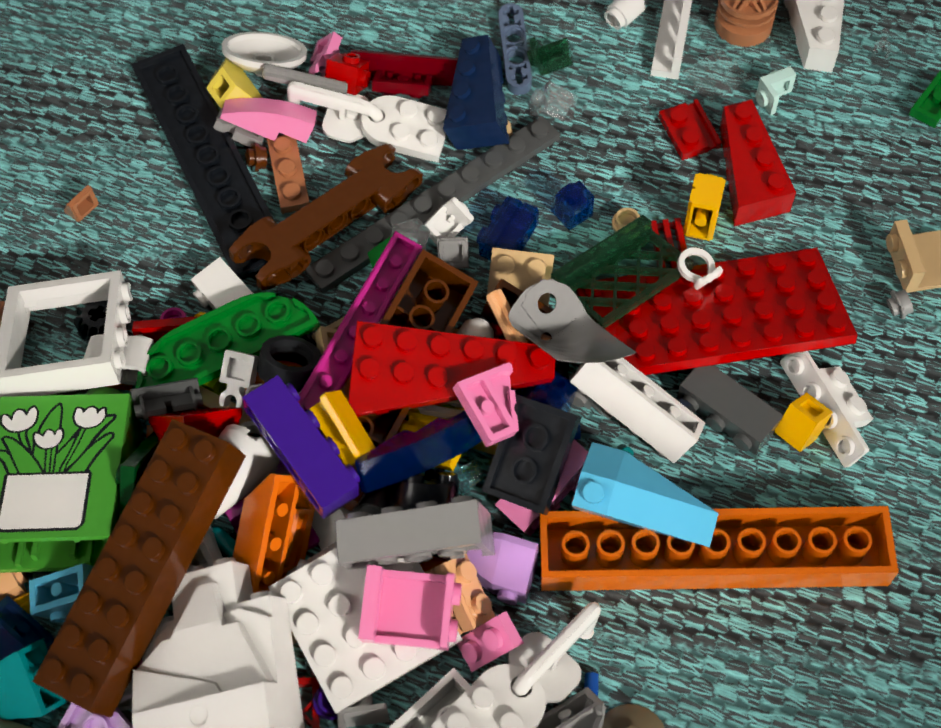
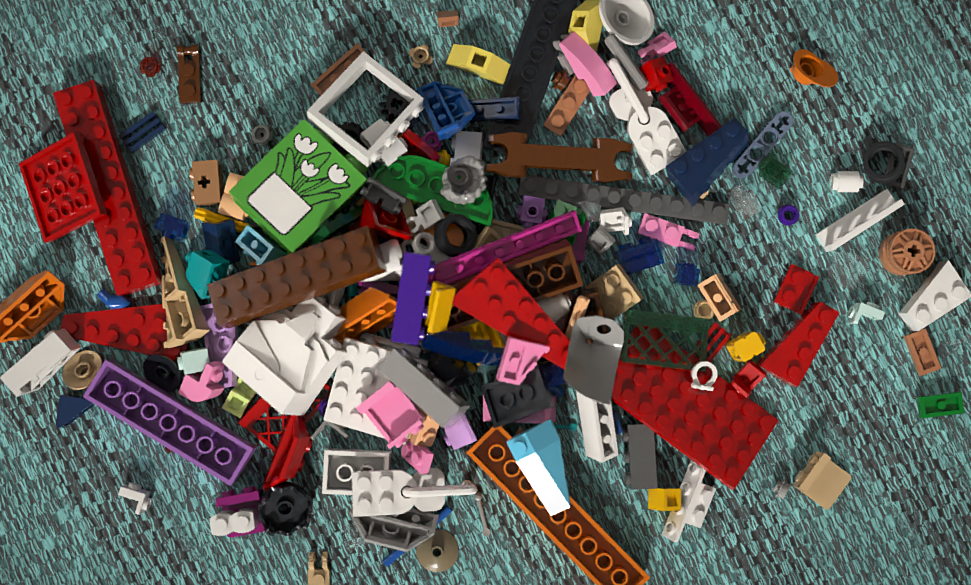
camera: 40 degrees right, 25 degrees up
(83, 252) = (421, 50): none -> tan plate
(153, 209) = (478, 63): none -> light yellow slope
(162, 274) = (446, 108): none -> blue wedge
(207, 238) = (496, 109): none -> dark blue tile
(244, 294) = (469, 184): none -> light grey hair
(346, 283) = (531, 204): none -> medium lavender brick
(515, 185) = (666, 232): none -> bright pink hinge
(606, 72) = (794, 215): none -> dark purple plate
(627, 190) = (719, 297): none -> light nougat brick
(662, 658) = (486, 531): none -> light grey hinge
(741, 236) = (747, 378): none -> red bracket
(864, 74) = (922, 352): none -> nougat plate

